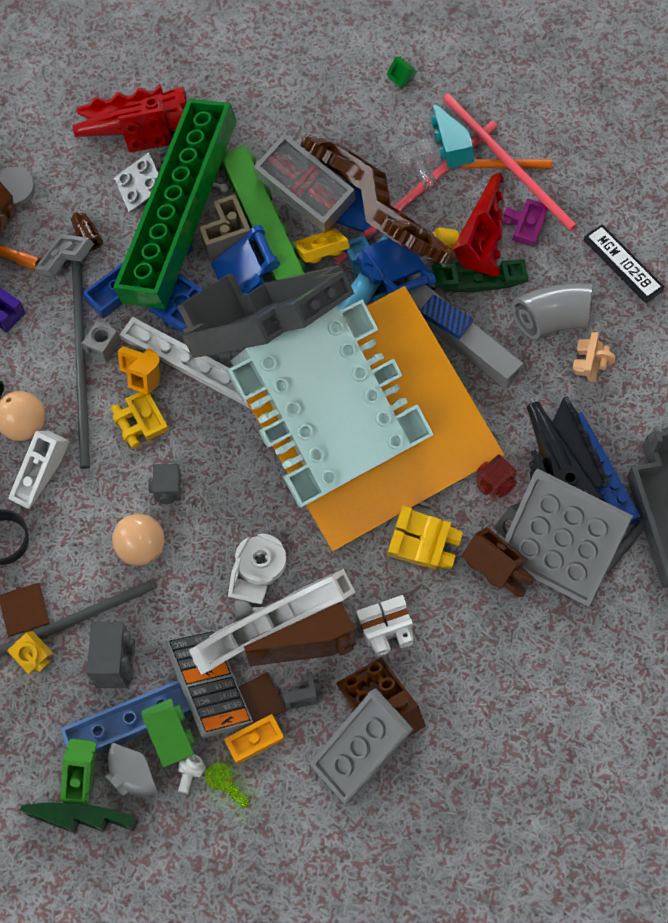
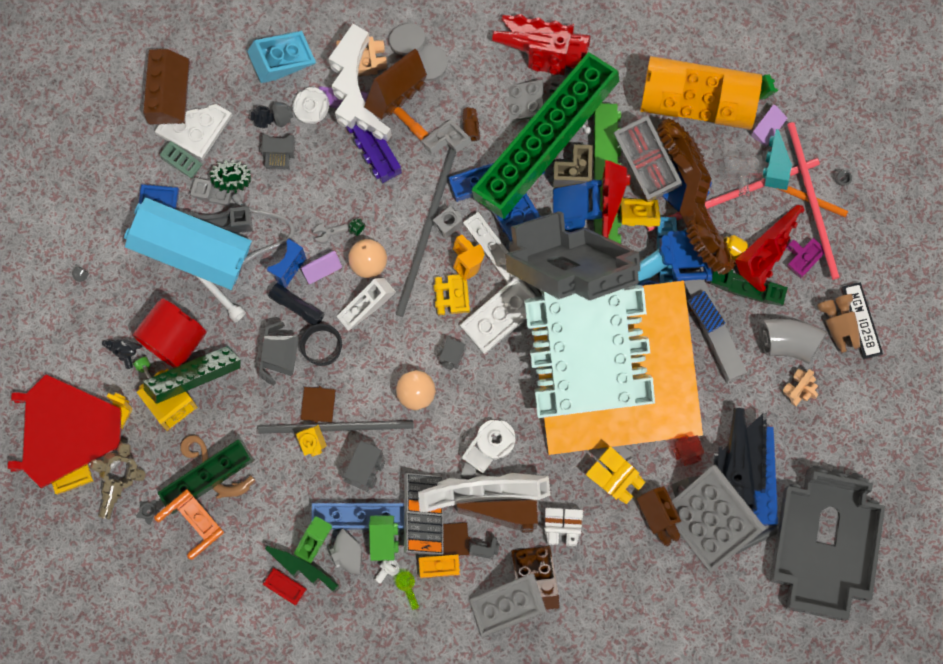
camera: 20 degrees right, 10 degrees up
(65, 850) = (284, 587): none -> red tile
(205, 419) = (498, 315): none -> white tile
(279, 228) = (614, 187): none -> red wedge
(334, 96) = (701, 92): none -> light orange cylinder
(423, 108) = (766, 128): none -> lavender slope
(526, 124) = (846, 181): none -> dark grey hinge
(605, 271) = (841, 325): none -> medium nougat piece

